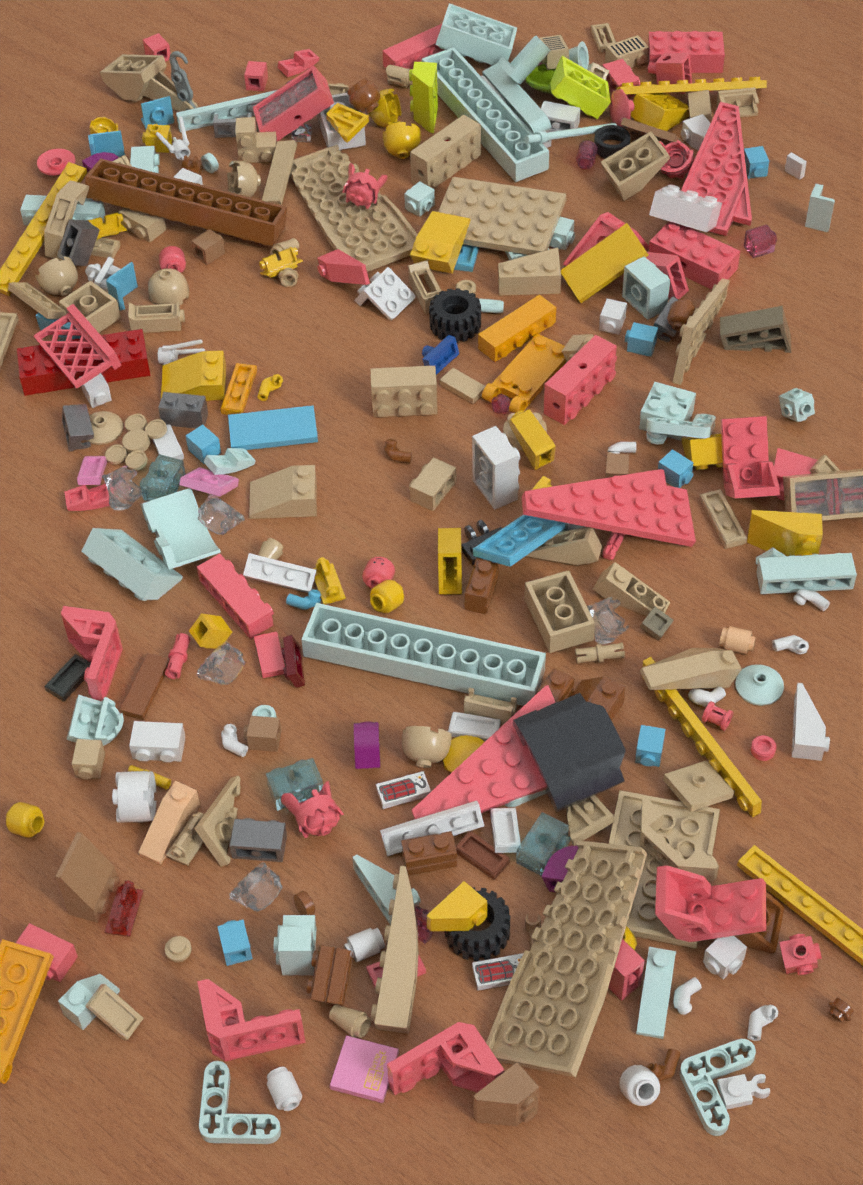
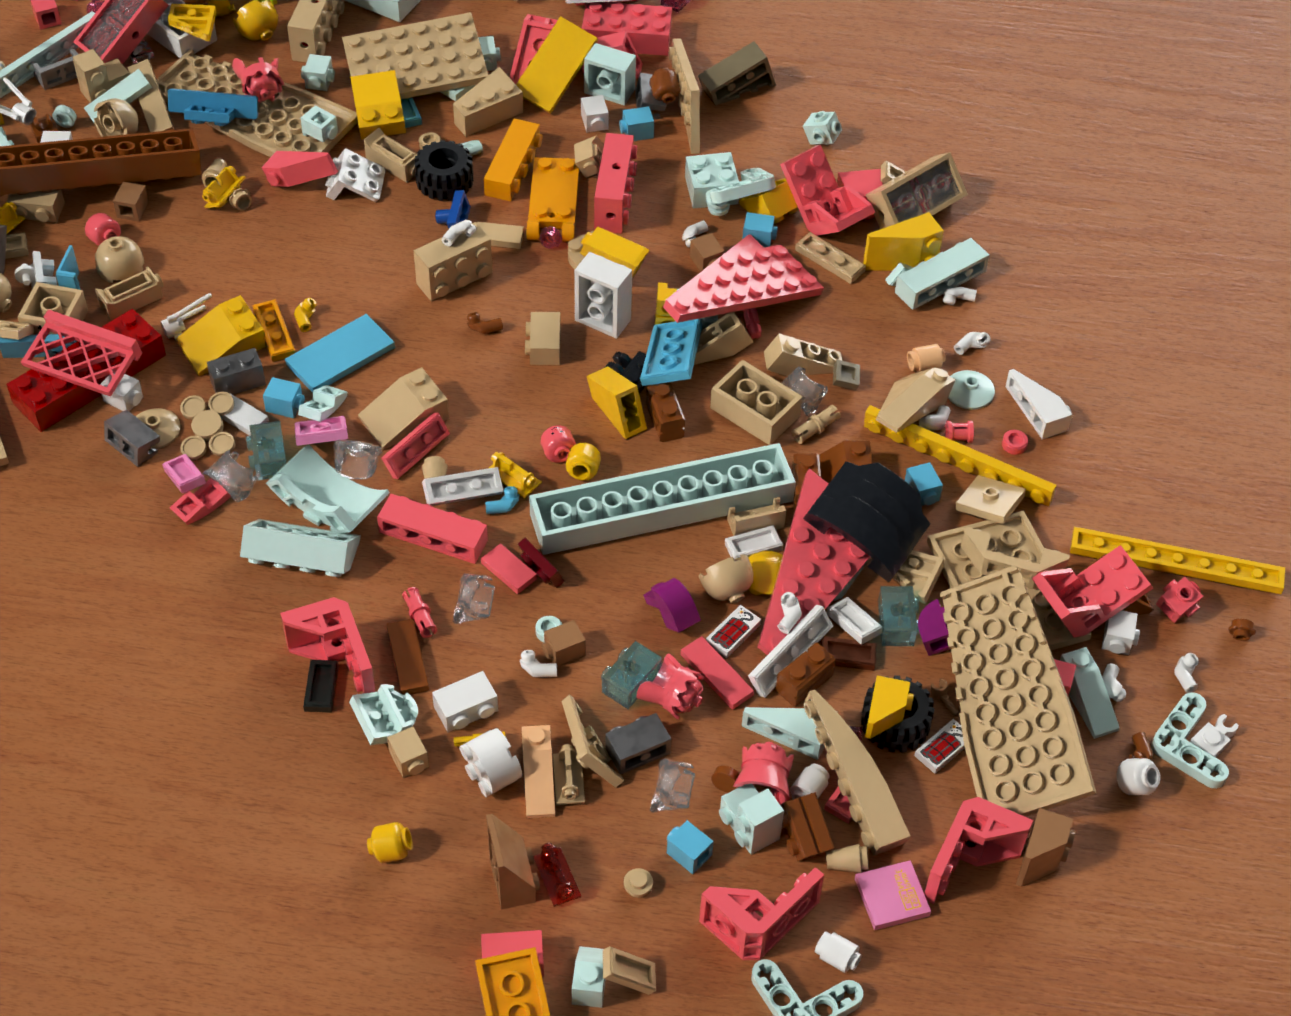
camera: 35 degrees left, 0 degrees up
(210, 631) = (438, 572): yellow brick -> none
(264, 159) = (127, 90): none -> light aqua tile
(271, 525) = (415, 445): none -> coral tile
(315, 196) = (212, 106): none -> dark azure bracket
(333, 913) = (768, 767): none -> coral hat
(364, 816) = (717, 672): none -> coral tile
(386, 245) = (322, 127): none -> light aqua brick
(410, 366) = (454, 231): none -> white arm
(450, 797) = (791, 611): none -> white arm

